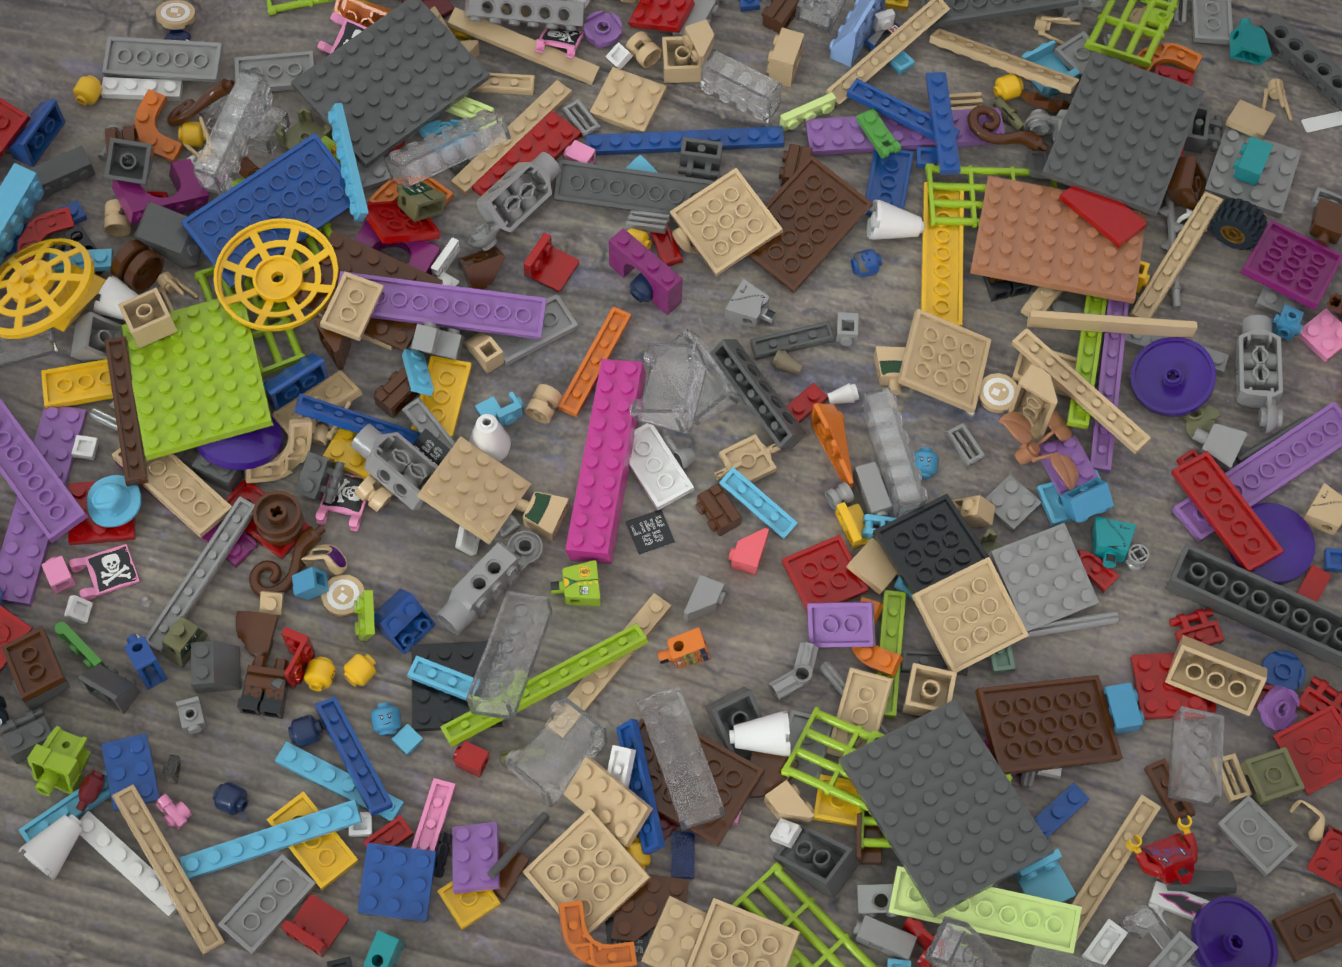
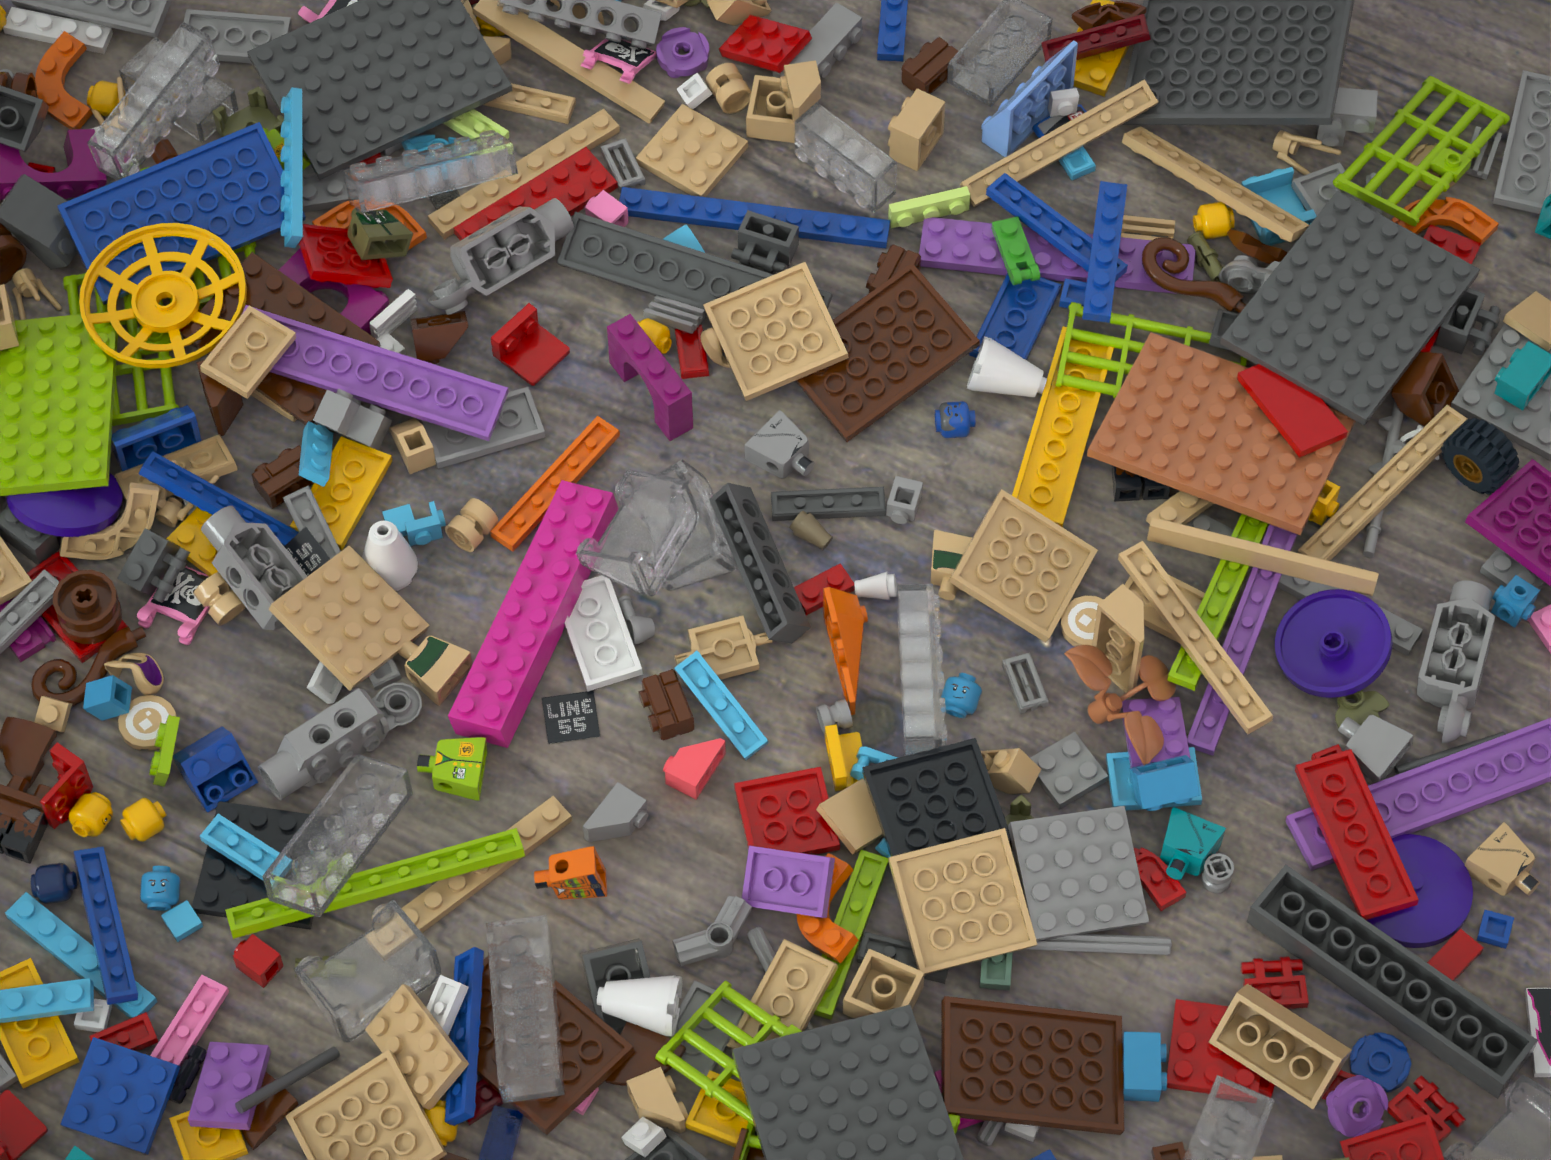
camera: 15 degrees right, 5 degrees down
(190, 108) = (113, 63): reddish brown plant -> none
(641, 289) = (640, 401): dark blue head -> none
(872, 490) = (881, 716): light grey brick -> none

